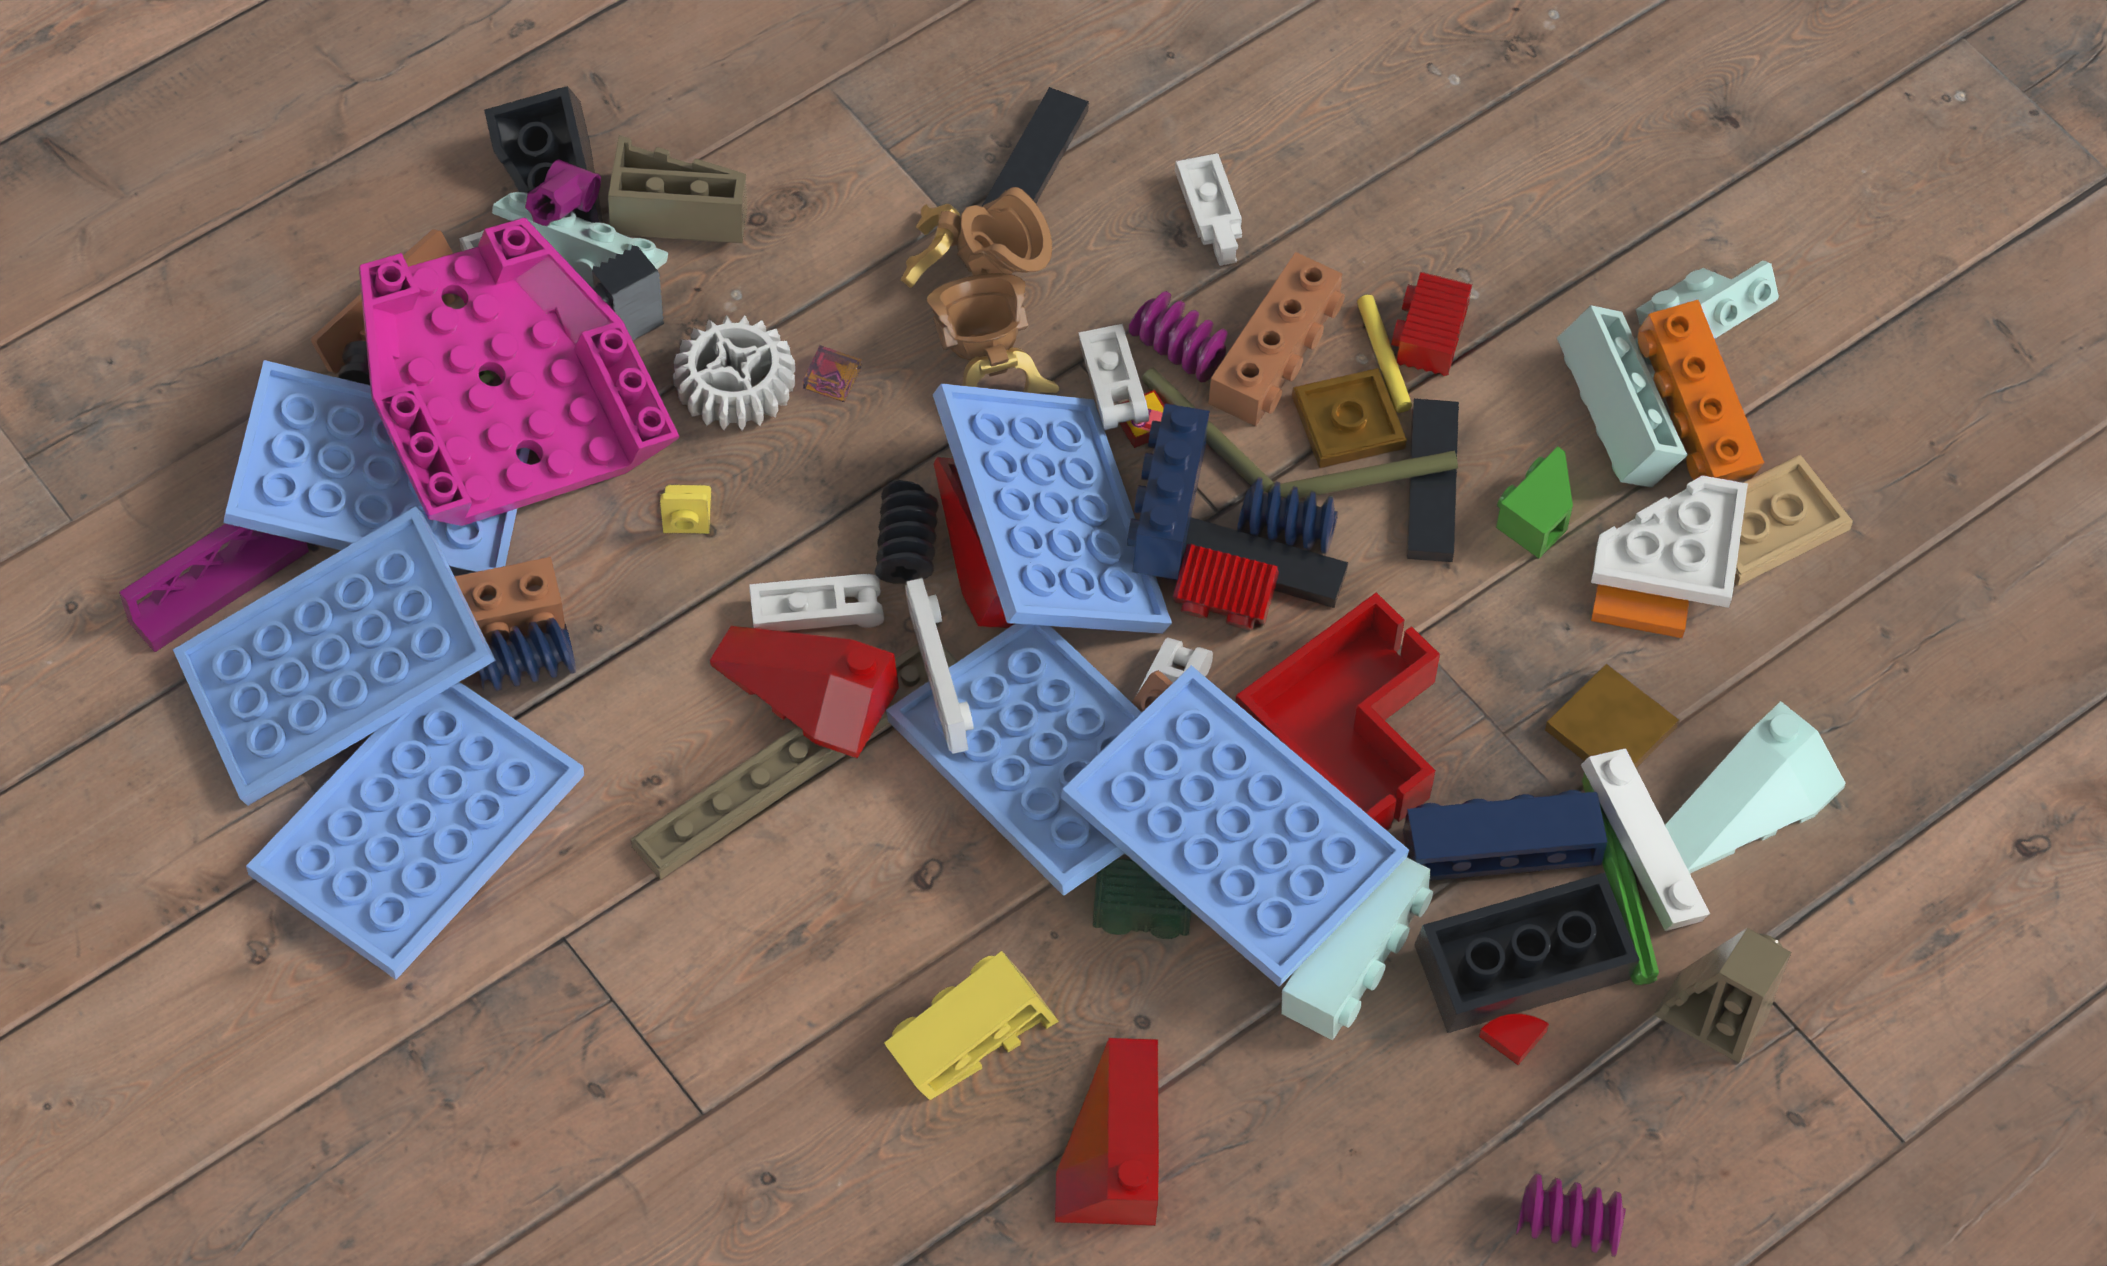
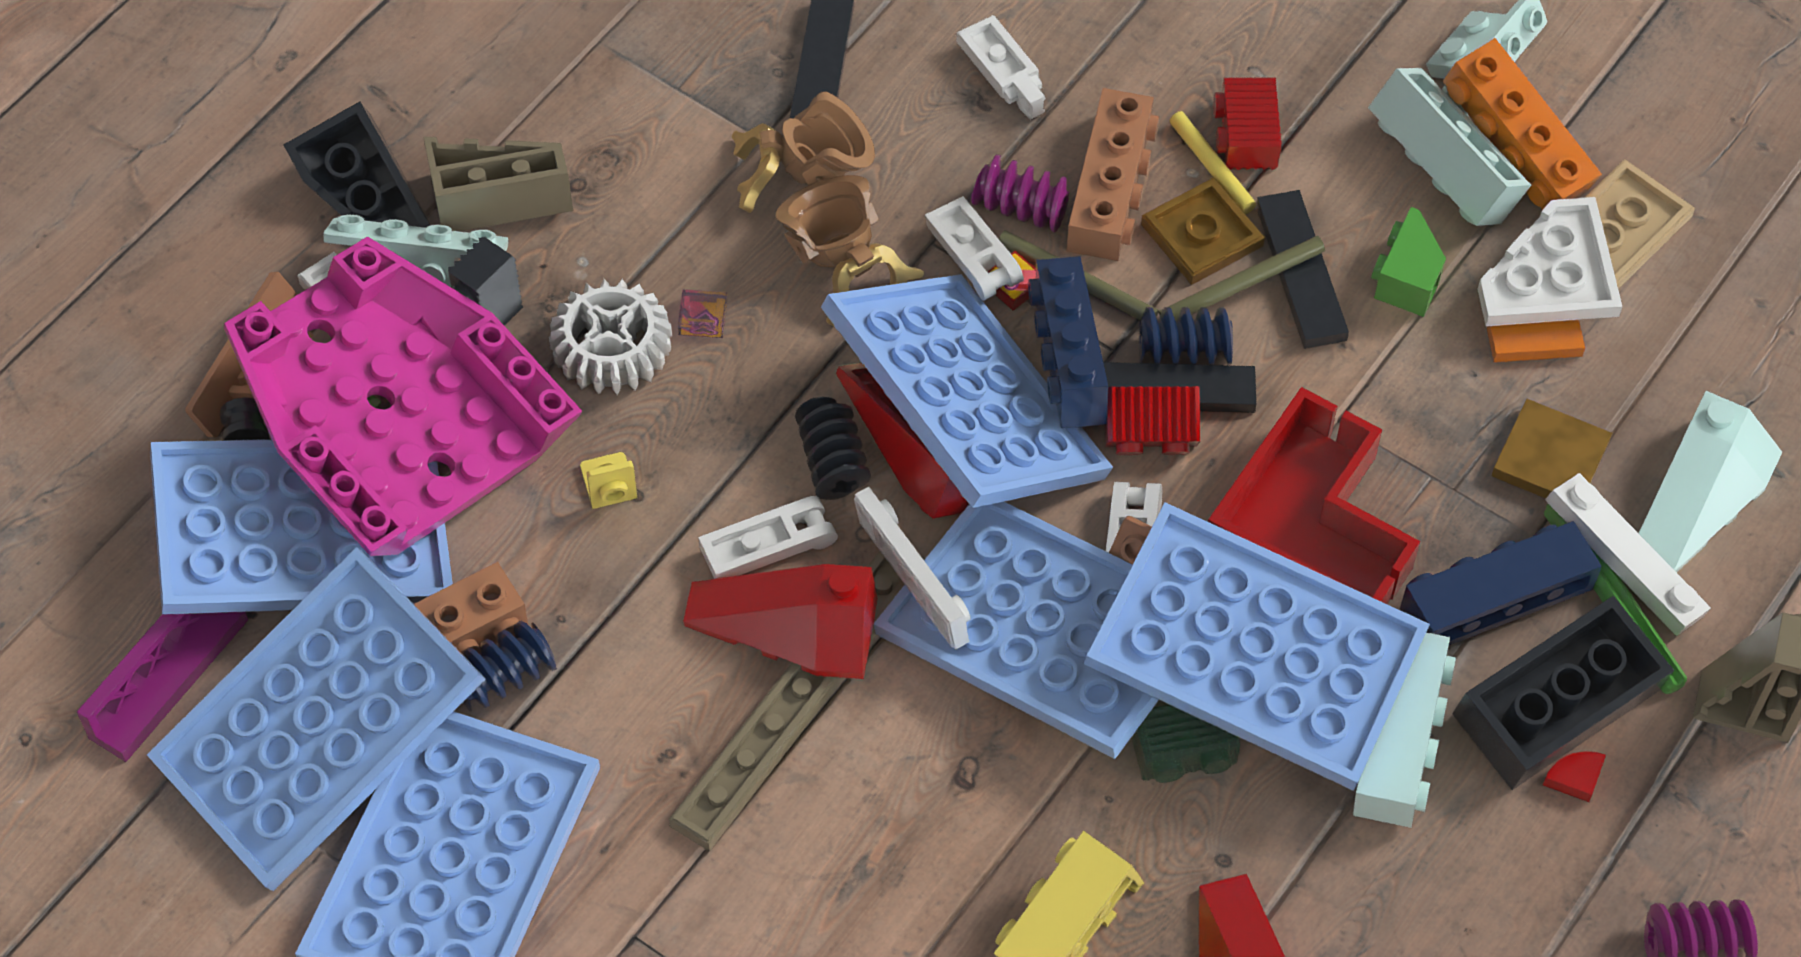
camera: 15 degrees left, 0 degrees up
(563, 191) = (389, 204): magenta piece -> none

